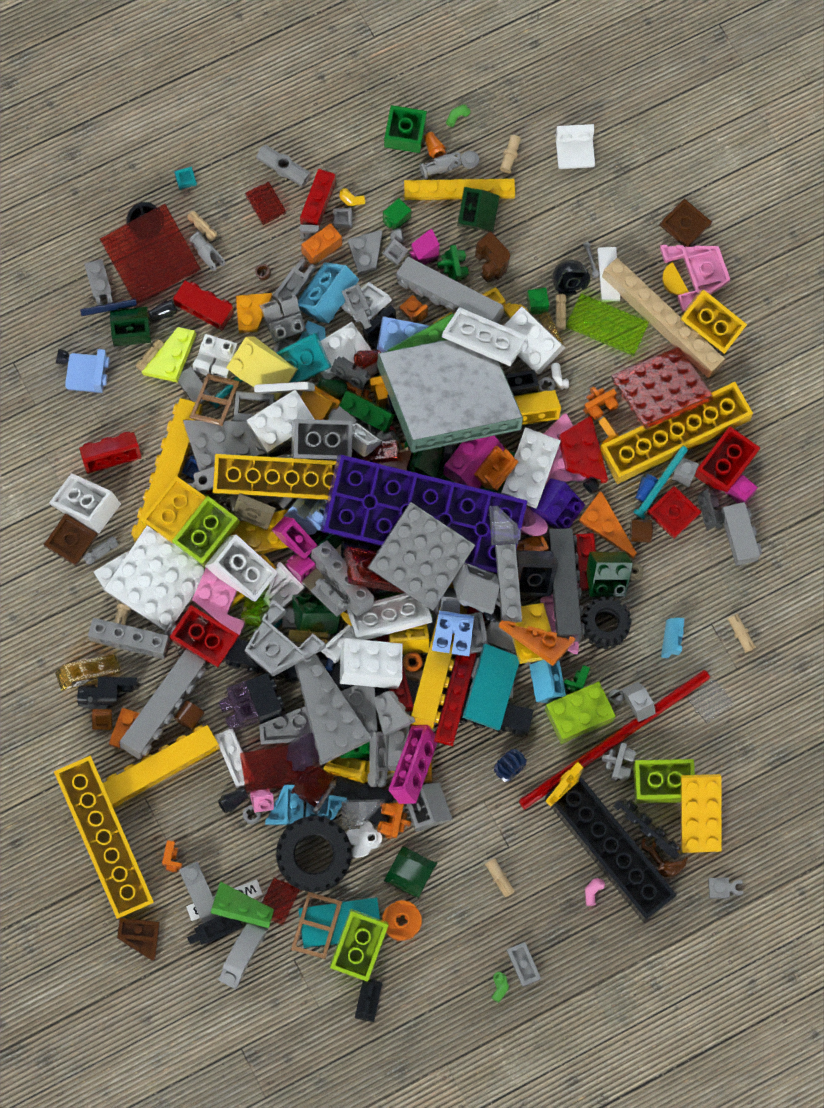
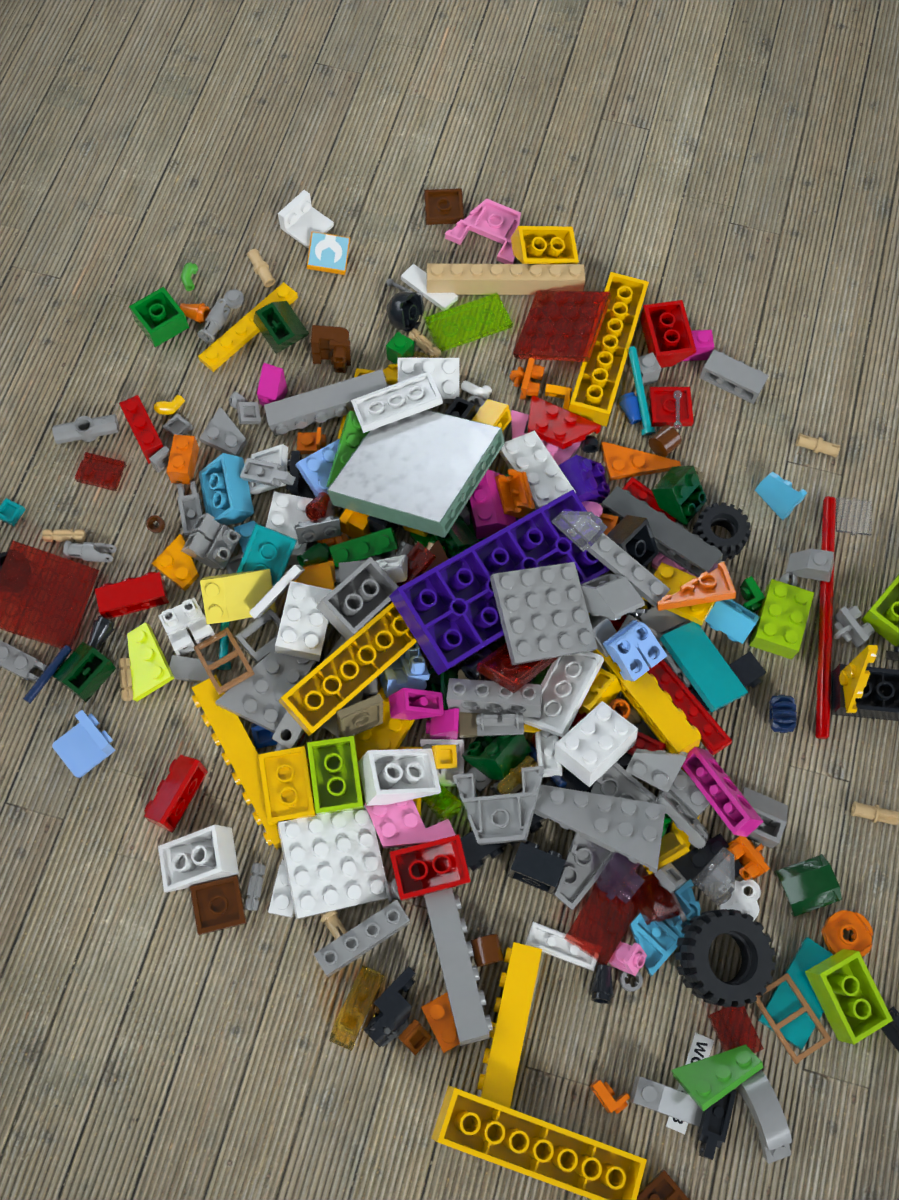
camera: 45 degrees left, 5 degrees down
(62, 356) = (47, 754): black hinge -> none
(242, 705) = (527, 896): clear purple hips -> none
(280, 584) = (445, 756): none -> yellow plate
(333, 782) = (670, 877): none -> light grey plate
(396, 214) = (219, 384): green brick -> none
(451, 265) = (302, 379): green hips -> none
(566, 185) = (328, 253): none -> tile
(672, 281) = (481, 251): yellow tile -> none
(685, 509) = (677, 395): none -> clear light blue hinge
(708, 501) = (686, 378): dark grey hinge -> none

